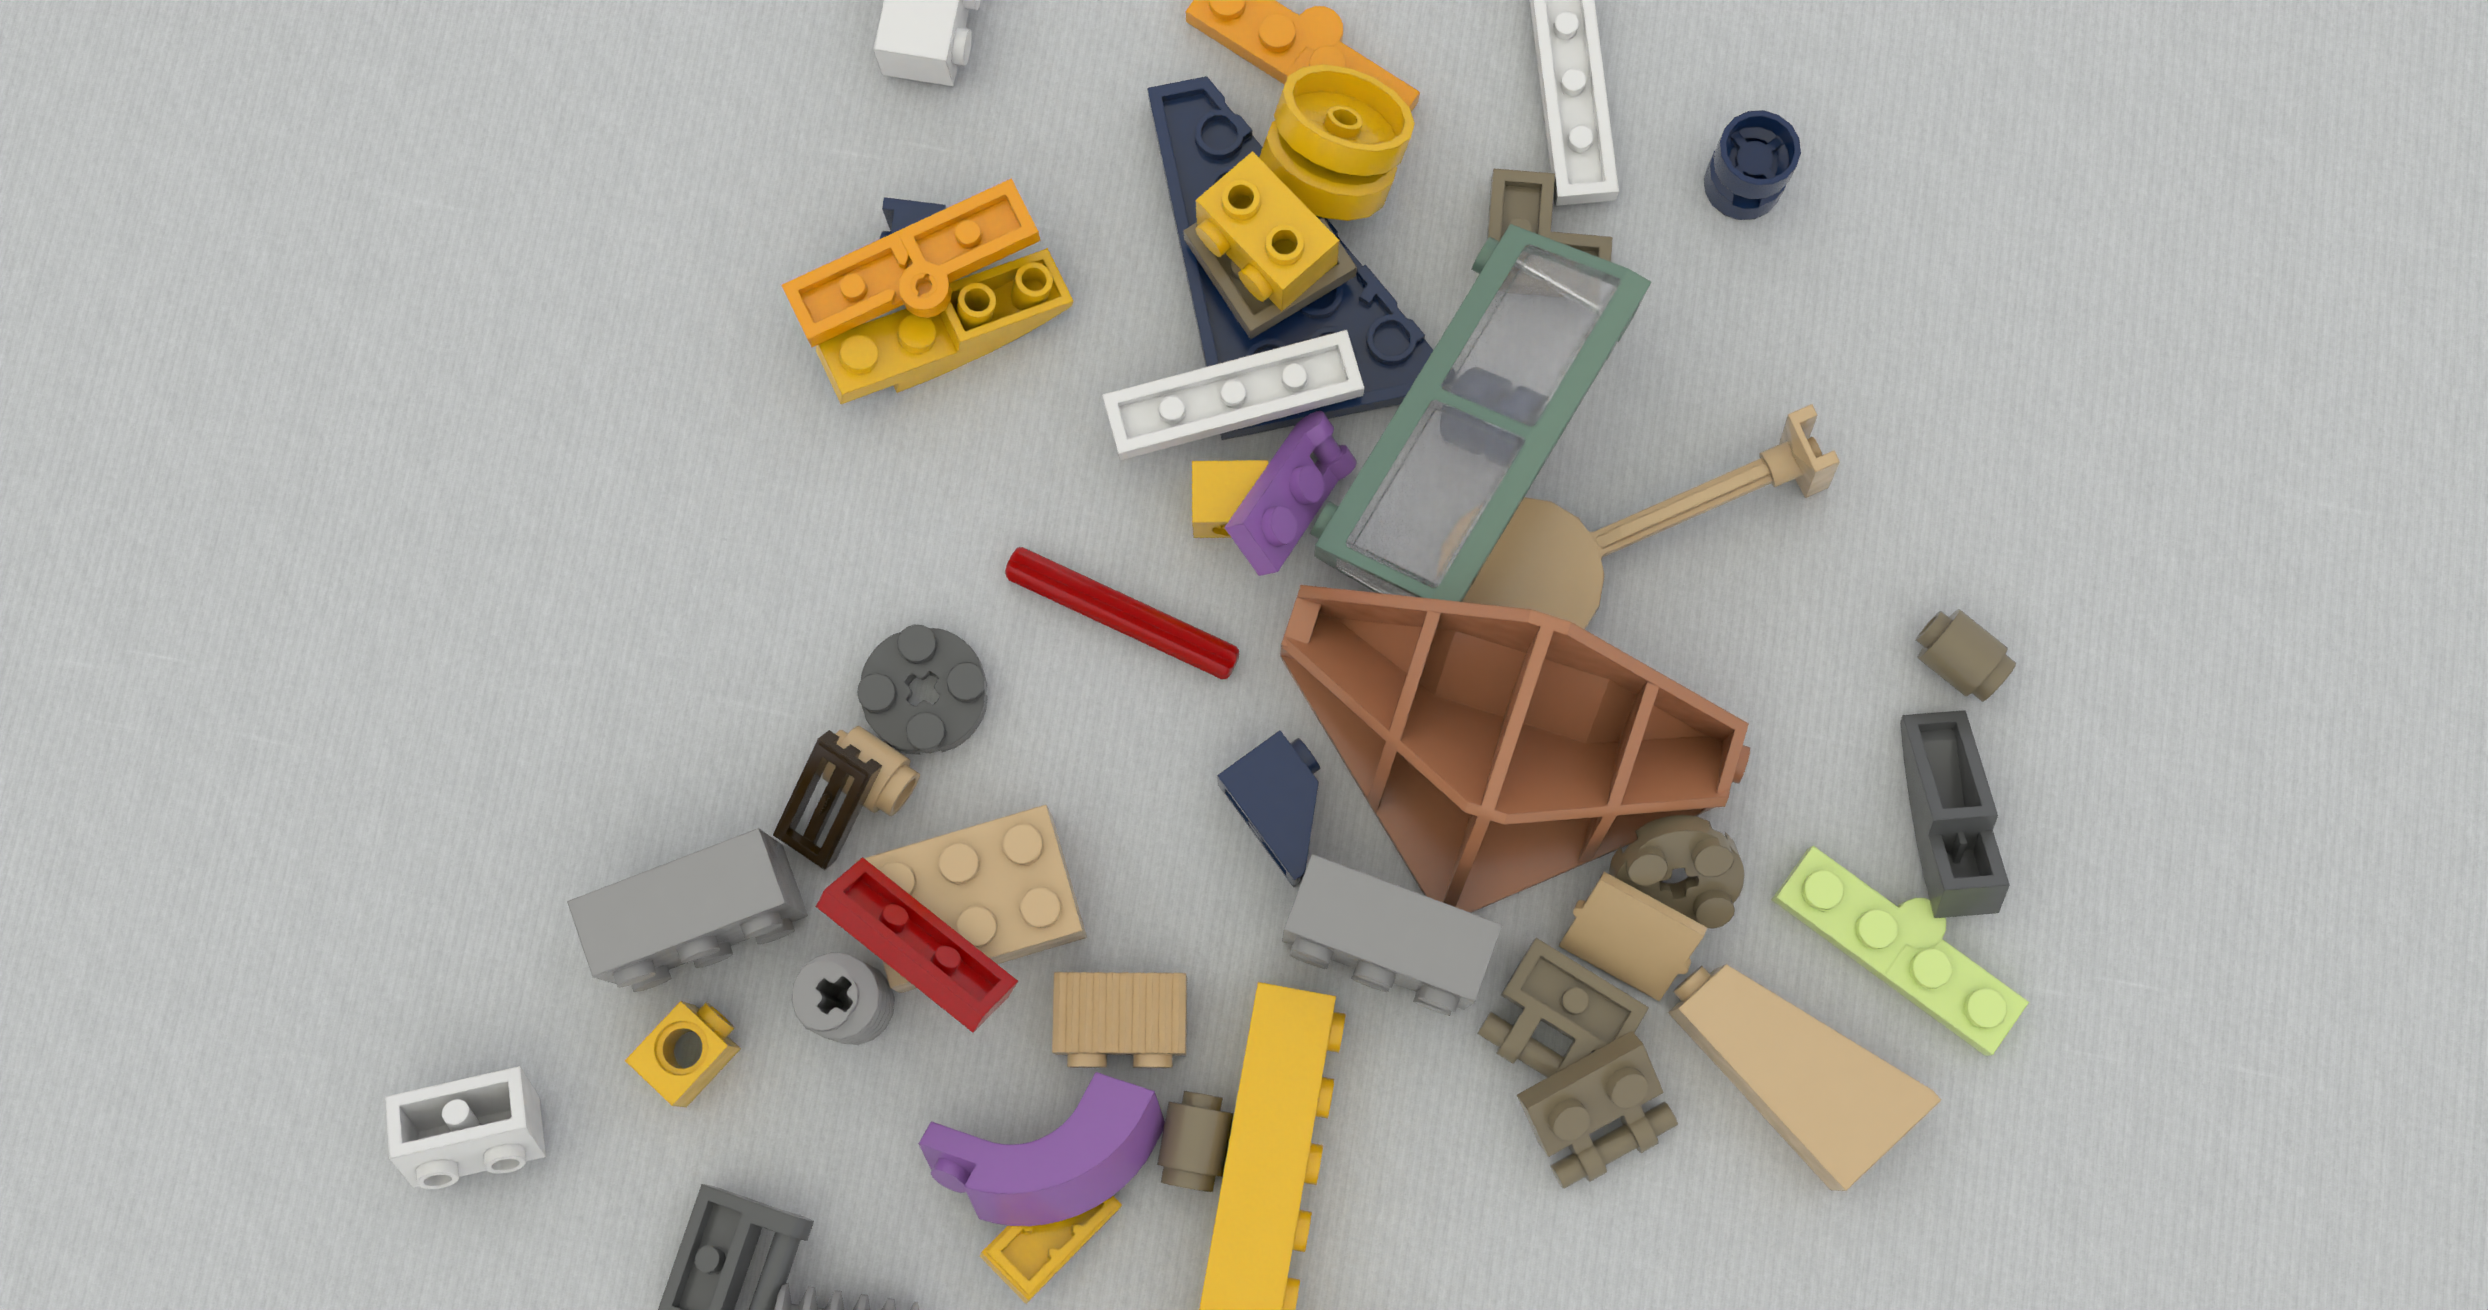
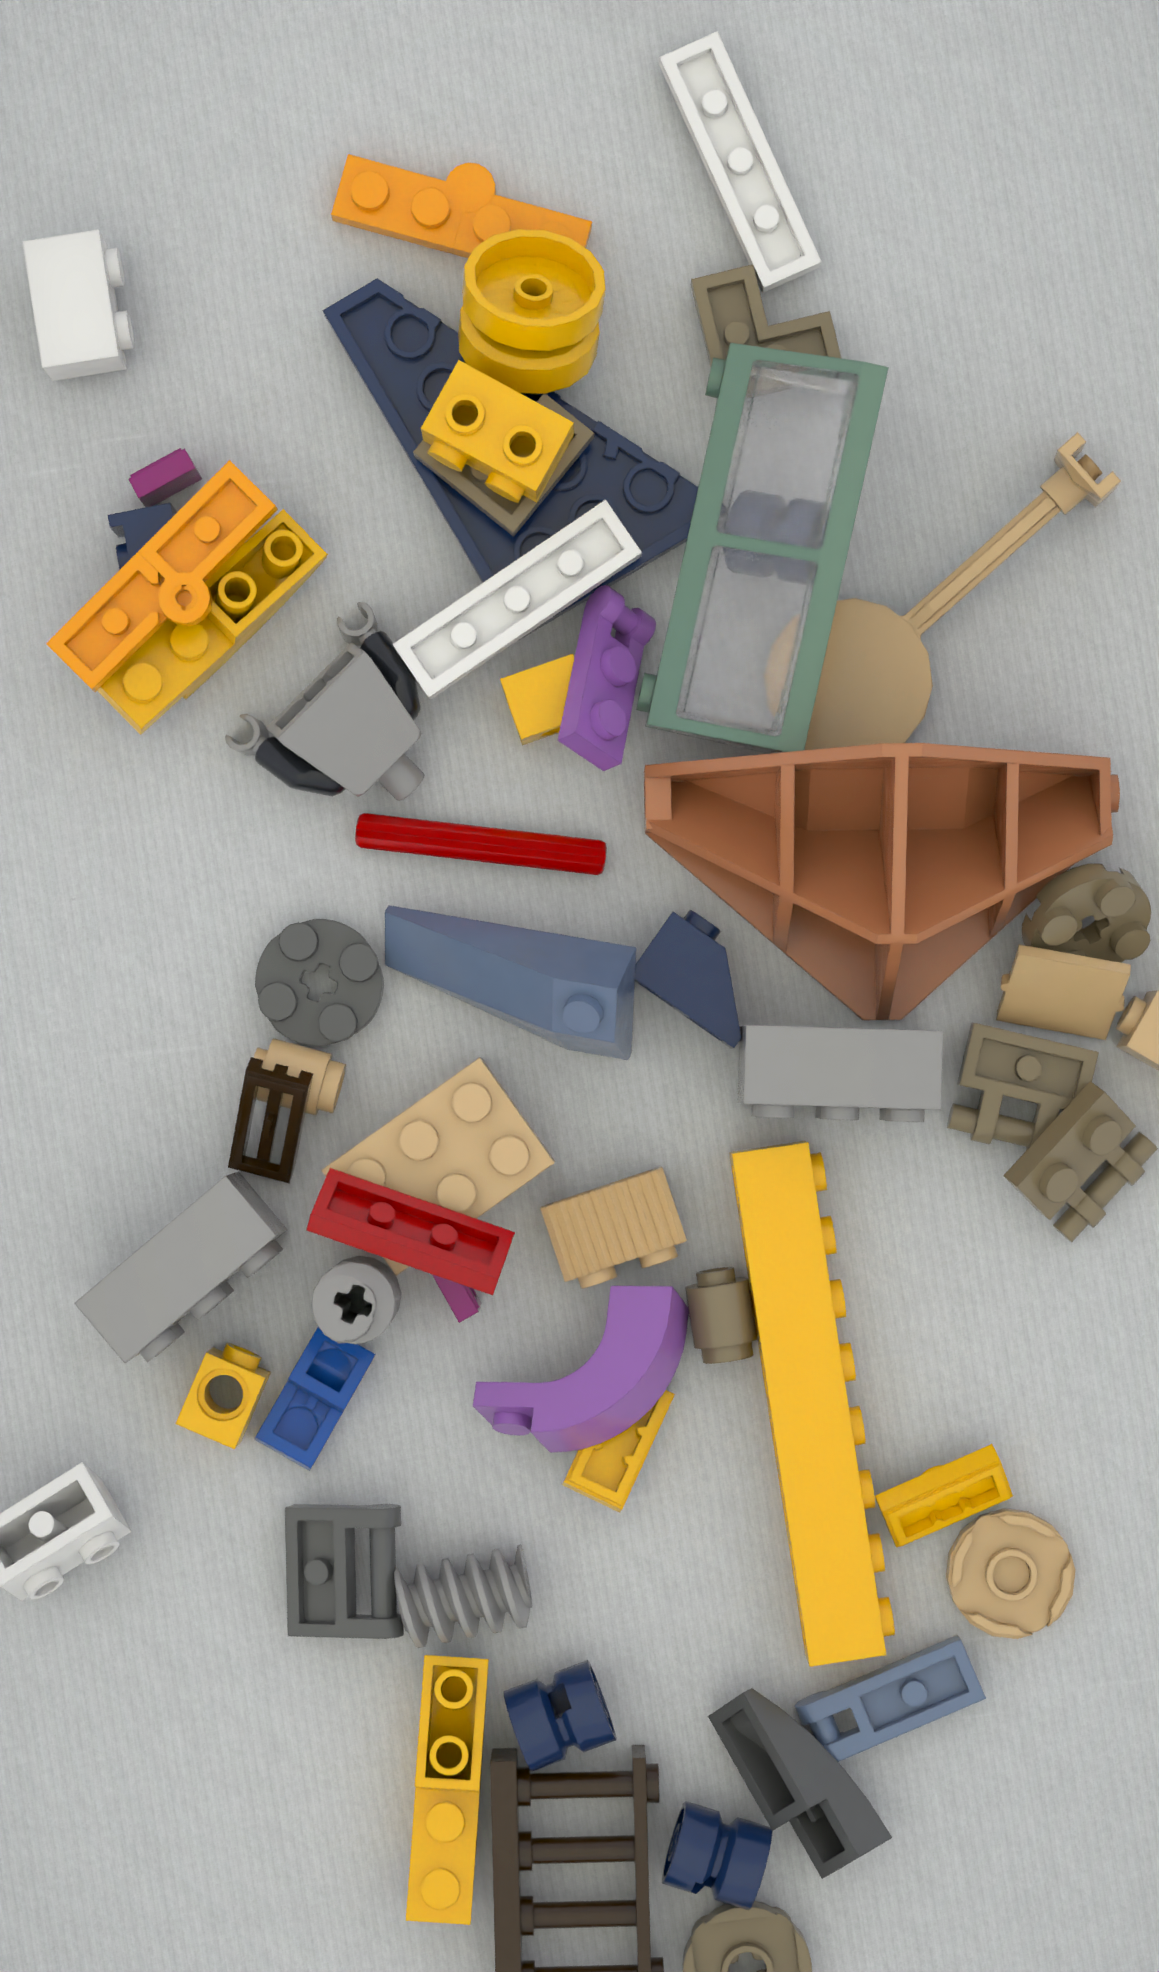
camera: 20 degrees left, 10 degrees up
(771, 1087) = (314, 1398): none -> blue slope
(946, 1032) = (460, 1298): none -> magenta tile
(949, 183) = (164, 477): none -> magenta tile
(1035, 457) = (346, 723): none -> light grey torso
(1127, 754) = (538, 980): none -> sand blue wedge
(1752, 164) = (943, 191): dark blue wheel -> none

